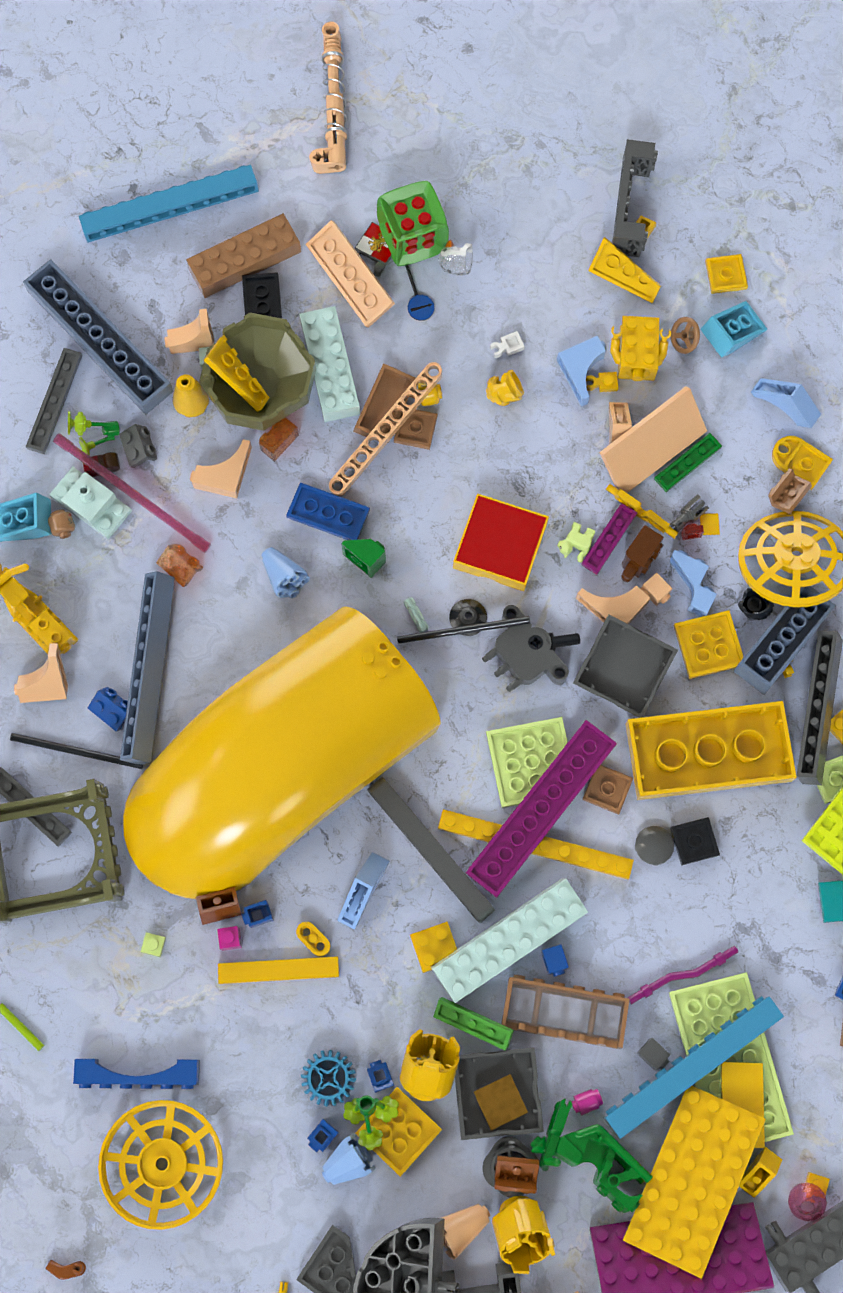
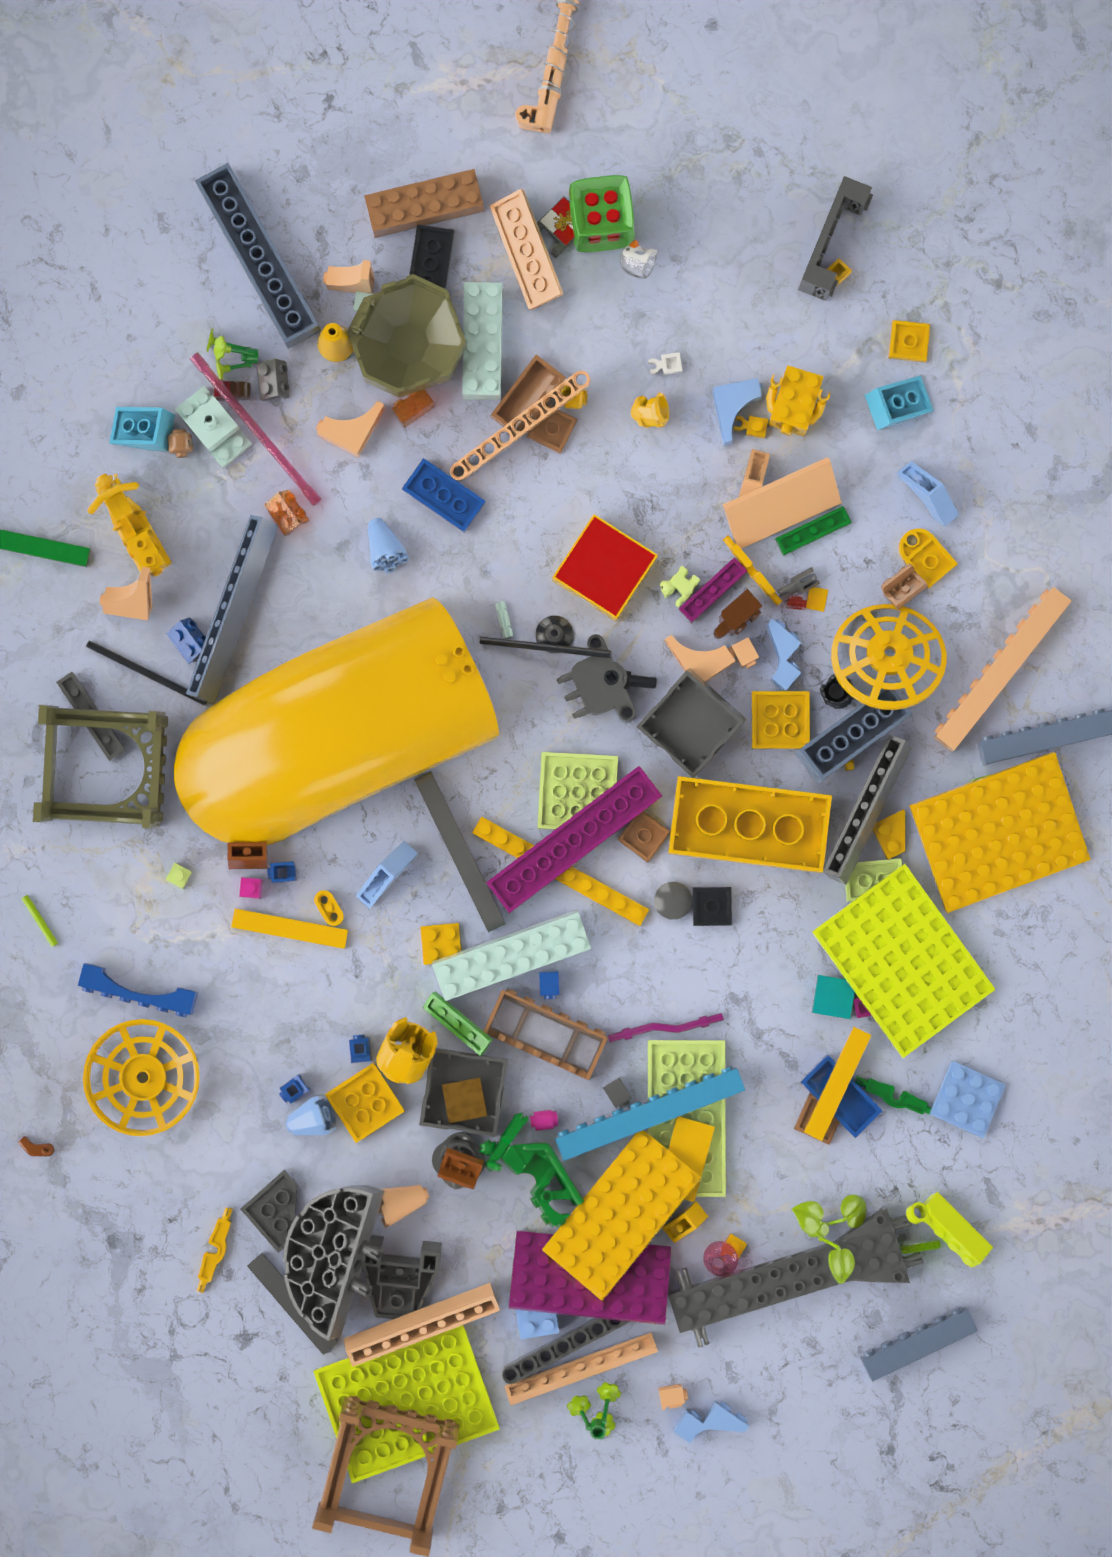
camera: 15 degrees right, 10 degrees up
(54, 401) = (200, 312): dark grey plate -> none
(168, 203) = (361, 126): dark azure brick -> none
(230, 369) = (380, 326): yellow wing -> none
(342, 1089) = (302, 1025): dark azure gear -> none
(360, 1110) = (338, 1074): lime plant -> none
(365, 554) = (469, 549): green slope -> none
(420, 306) = (589, 300): blue piece -> none
(522, 1233) = (452, 1221): yellow piece -> none
(620, 270) = (803, 315): yellow wing -> none
(689, 335) = (852, 398): medium nougat piece -> none

